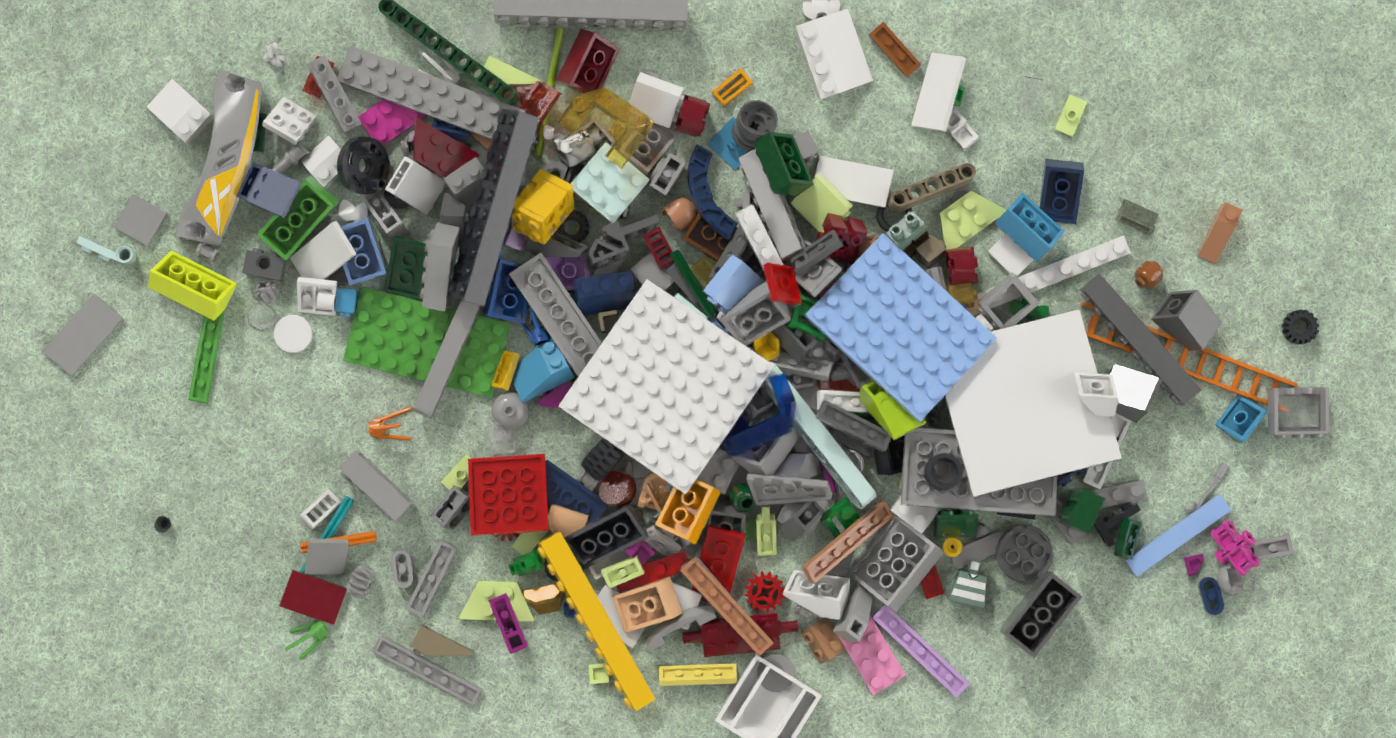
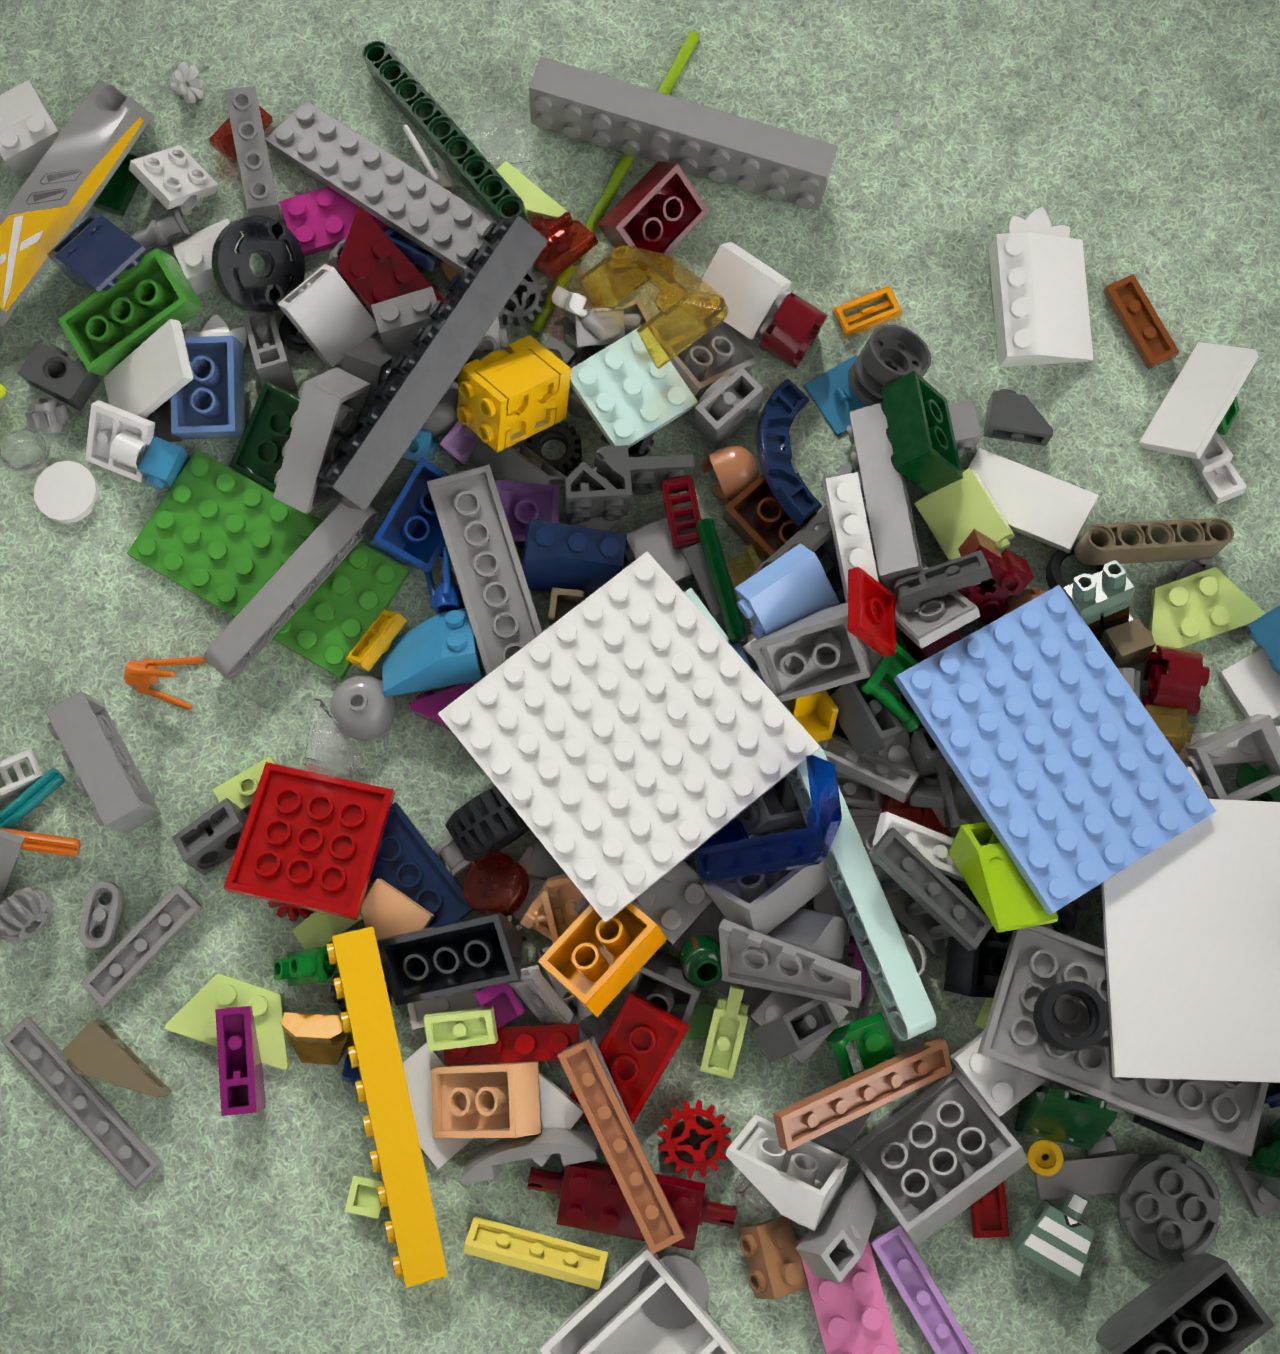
camera: 25 degrees right, 10 degrees down
(835, 132) = (1015, 419): none -> dark grey slope

